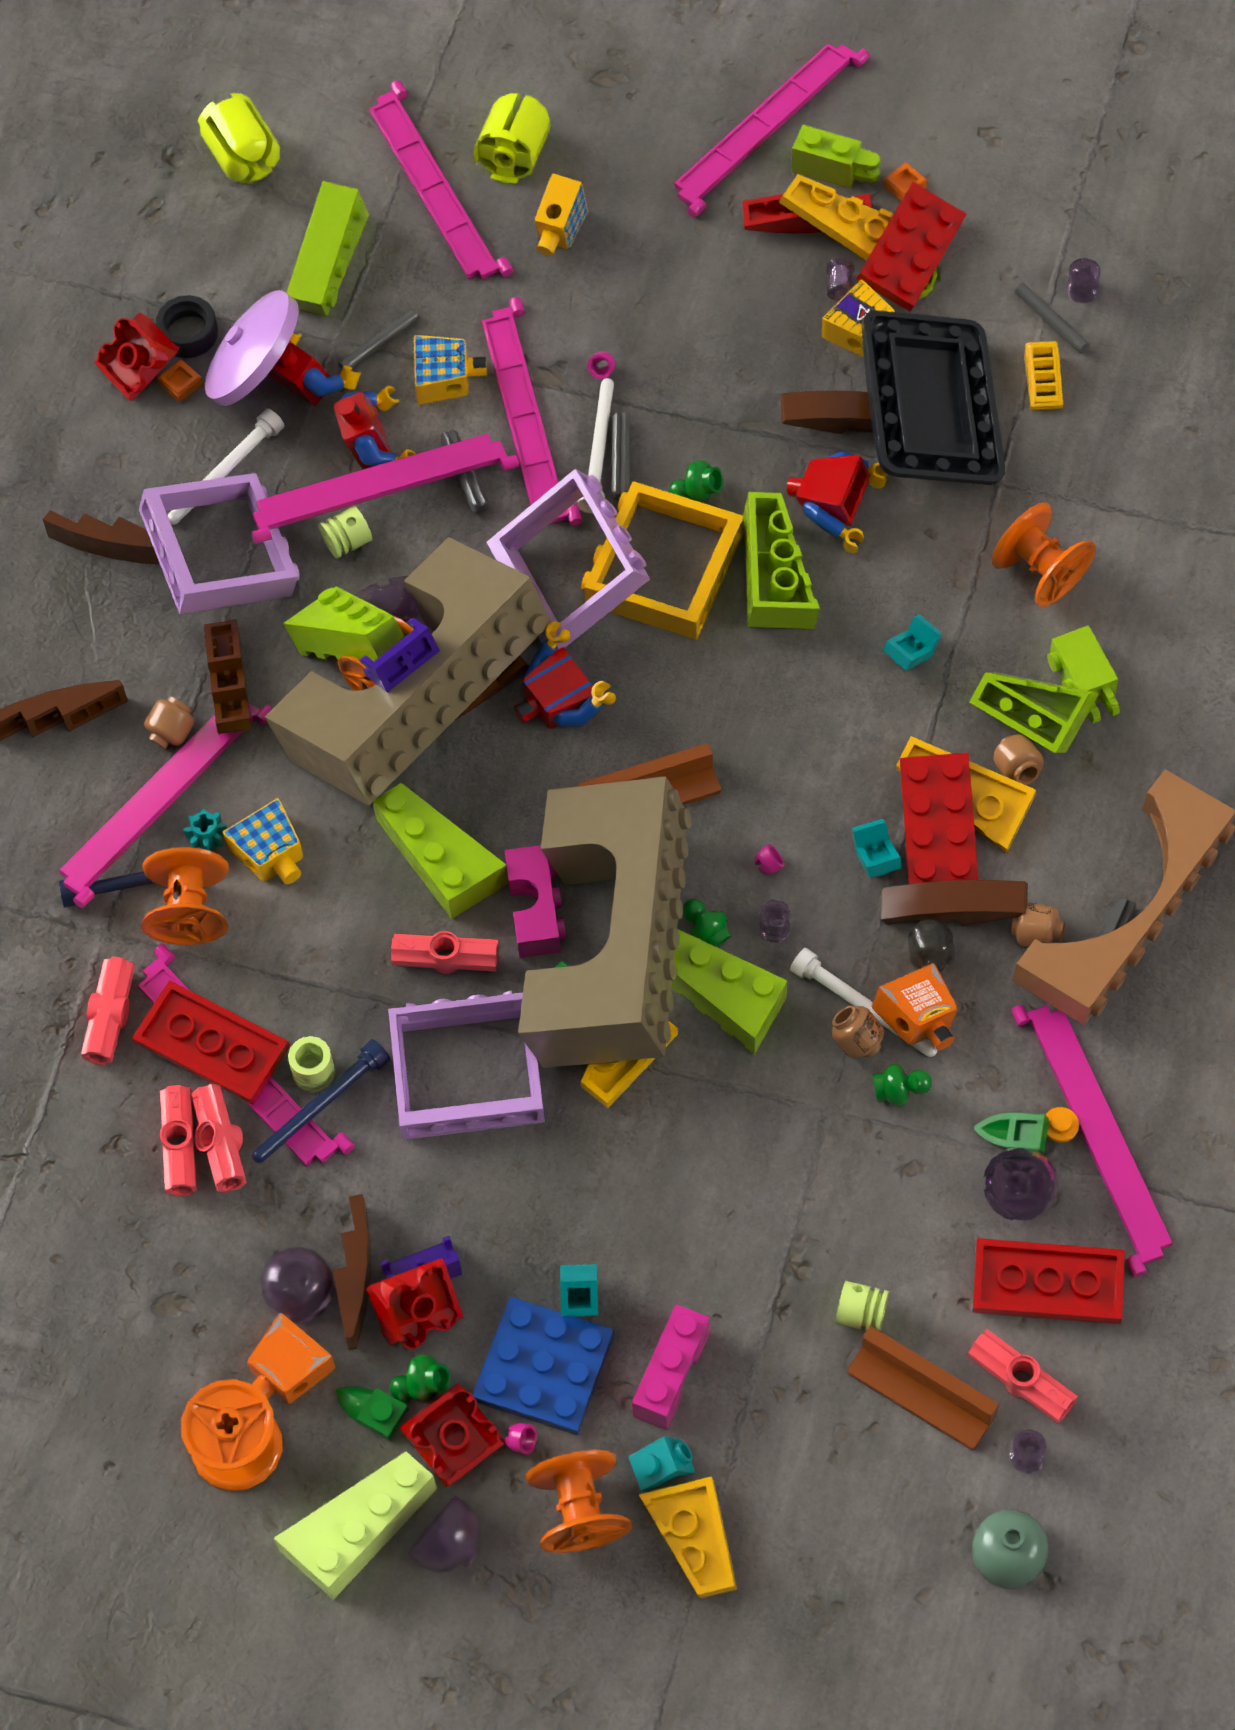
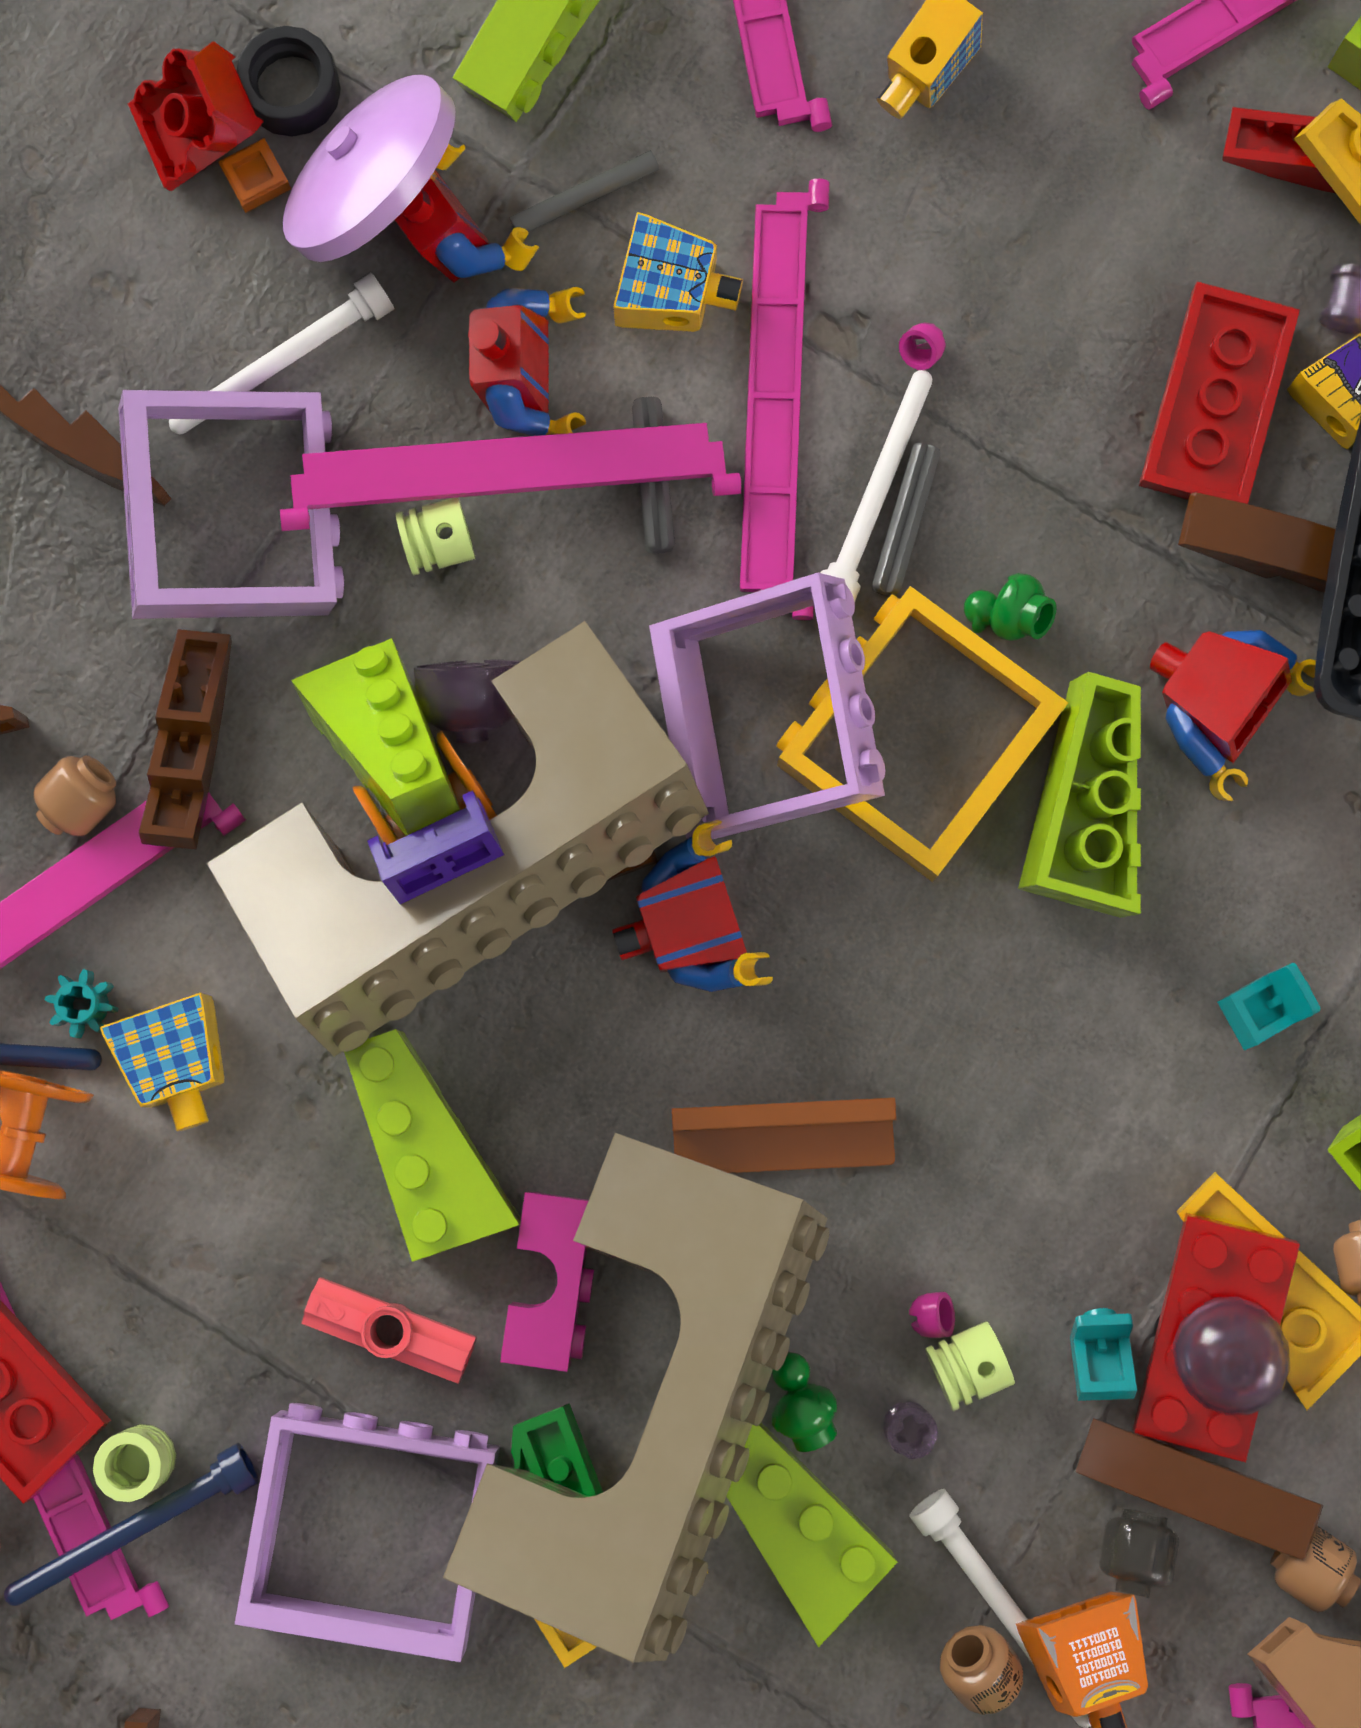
camera: 15 degrees right, 20 degrees up
(781, 344) = (1219, 395): none -> red plate
(799, 876) = (970, 1365): none -> yellowish green piece
(947, 818) = (1231, 1356): none -> cylinder

